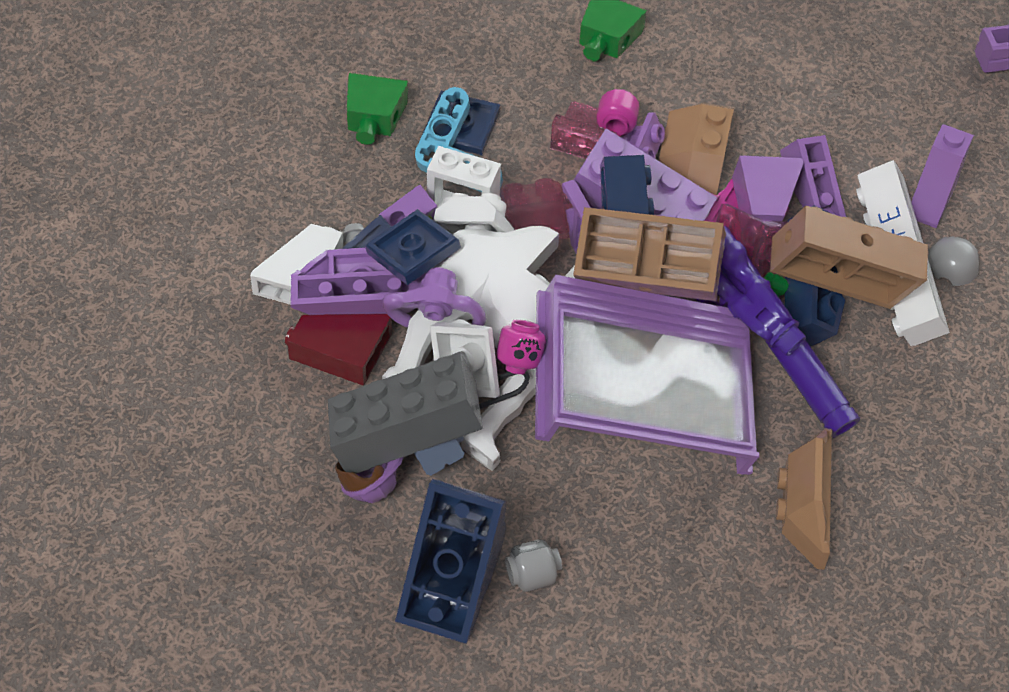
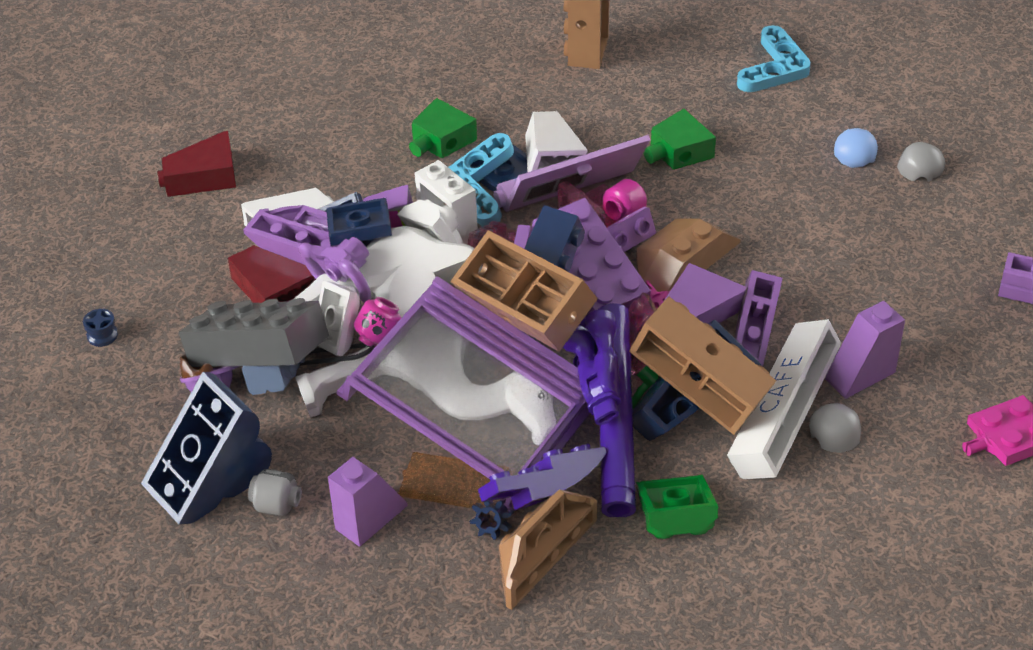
camera: 35 degrees right, 10 degrees down
(161, 250) = (199, 167): none -> dark red slope
(209, 467) = (100, 327): none -> dark blue wheel
(496, 79) = (550, 141): none -> white slope
(541, 105) = (579, 171): none -> lavender door
(632, 537) = (362, 501): none -> medium lavender slope
(673, 474) = (442, 481): none -> clear orange piece
(748, 490) = (501, 517): none -> dark blue gear
(782, 429) = (544, 478): none -> slope
(892, 398) = (677, 506): none -> green slope

